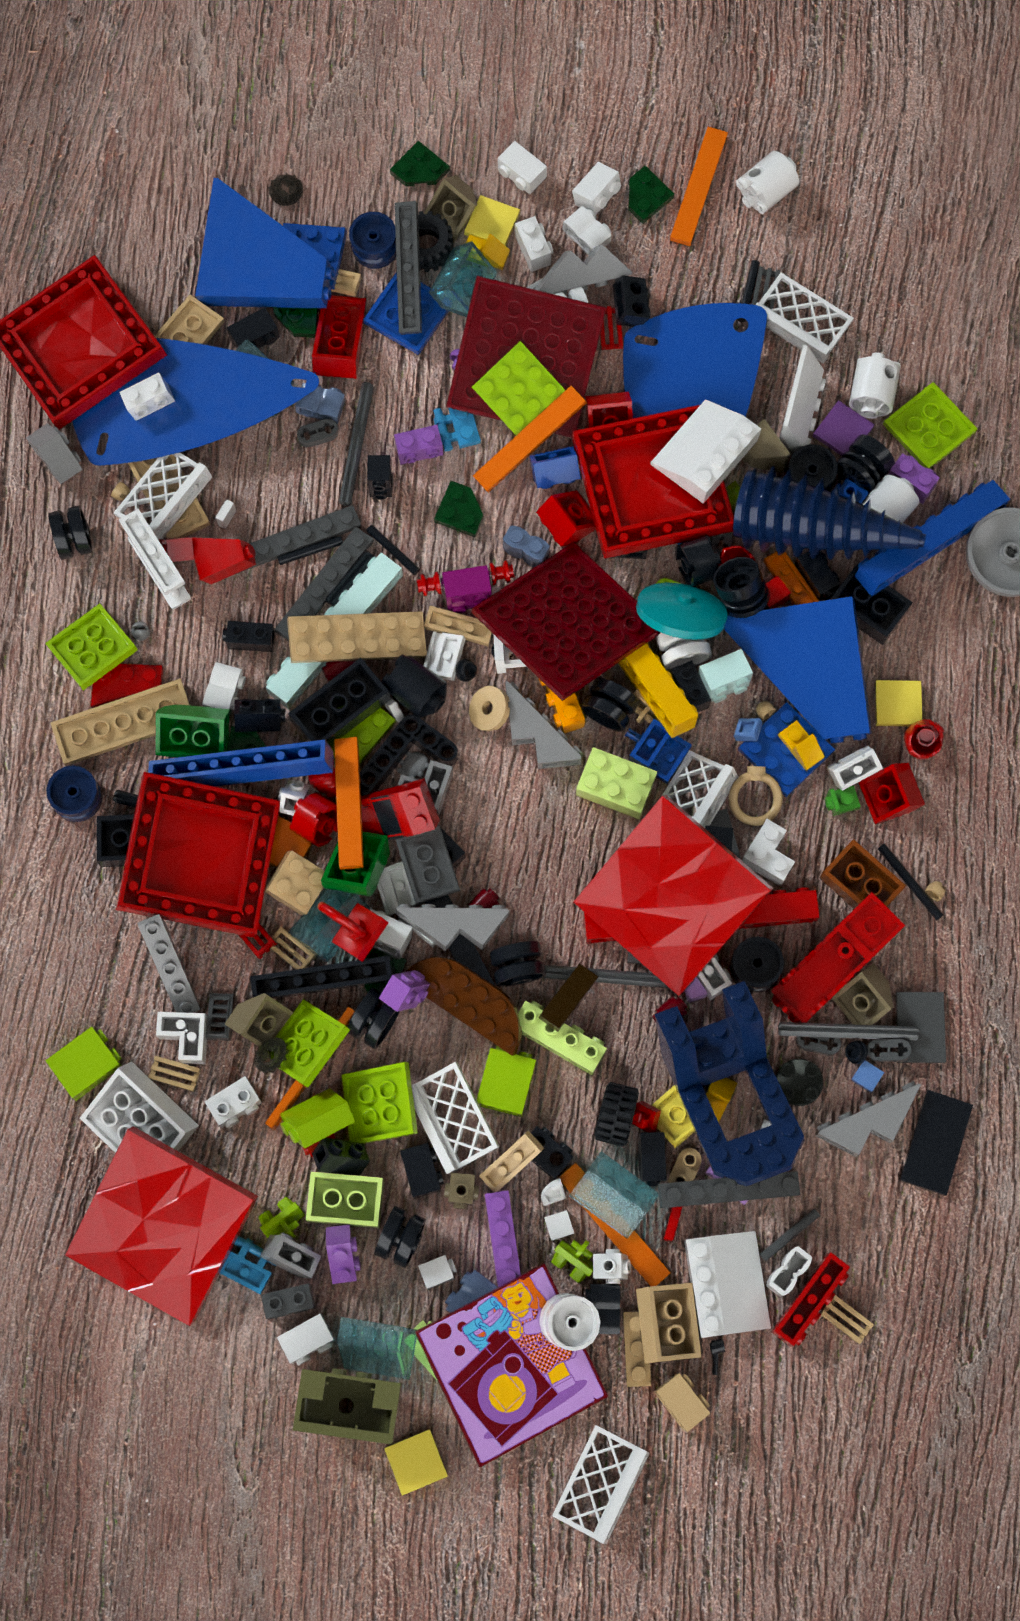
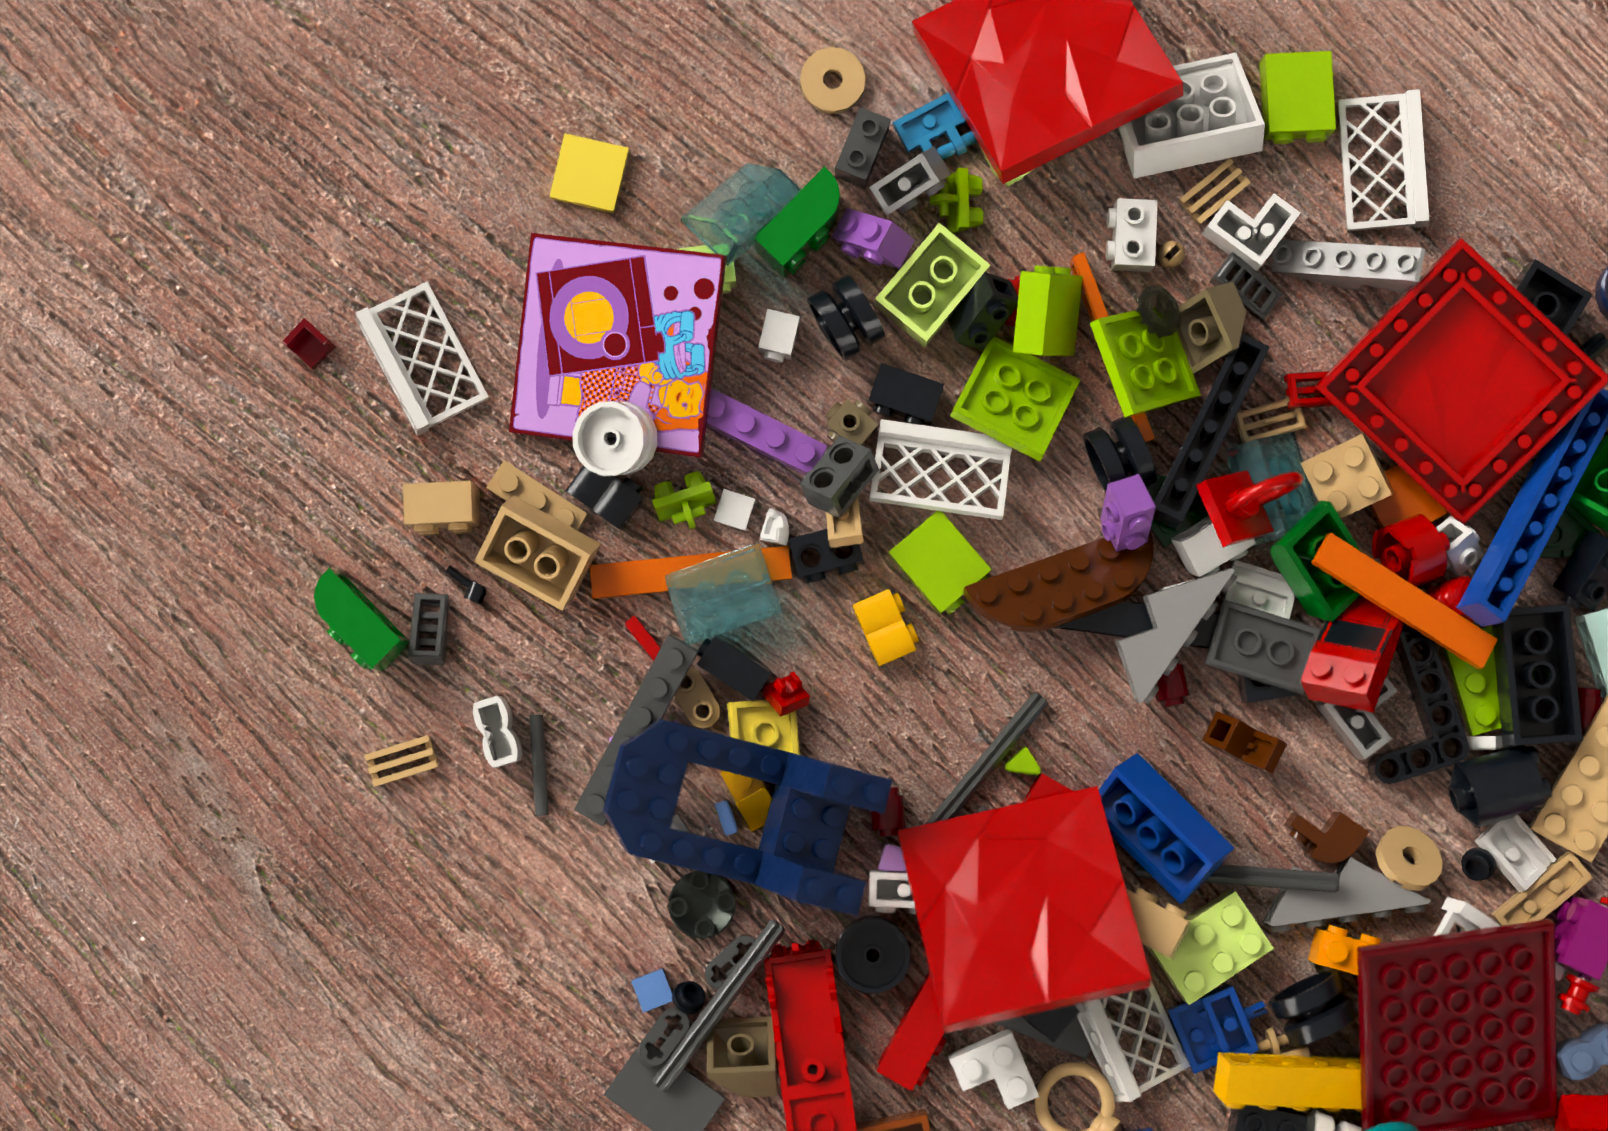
camera: 125 degrees right, 10 degrees up
(77, 972) = (1413, 161): none -> white fence
(229, 1078) = (1176, 260): none -> tan hinge
(244, 1358) = (832, 61): none -> tan tile
(306, 1339) = (806, 138): white brick -> none
(362, 1303) = (800, 225): none -> green brick
(372, 1410) = (710, 97): olive brick -> none
(413, 764) = (1399, 717): light grey piece -> none
(473, 1287) = (730, 363): sand blue brick -> none
(489, 839) = (1244, 743): none -> reddish brown brick
(498, 1168) = (839, 476): none -> dark grey brick
(509, 754) = (1333, 843): none -> reddish brown brick
(517, 963) = (1071, 671): black wheel -> none
(566, 794) = (1267, 877): none -> dark grey axle
(566, 1043) = (948, 660): yellowish green brick -> none
(566, 1087) = (884, 626): none -> yellow brick
(568, 997) = (987, 702): dark brown tile -> none
(570, 852) = (1161, 828): none -> blue slope
(588, 955) = (1023, 763): none -> lime slope
(611, 1266) = (645, 534): white brick -> none
(616, 1114) = (812, 660): black tyre -> none
(626, 815) = (1158, 927): none -> tan brick
(641, 1561) = (308, 344): none -> dark red panel
(727, 1284) = (534, 653): white slope -> none
(740, 1102) = (726, 817): none -> medium blue tile
(780, 1355) = (440, 643): none -> dark grey slope
(786, 1402) = (357, 622): none -> green brick
(811, 1298) = (449, 733): red brick -> none
(878, 1119) = (593, 967): light grey slope -> none
(936, 1142) = (521, 1013): black tile -> none

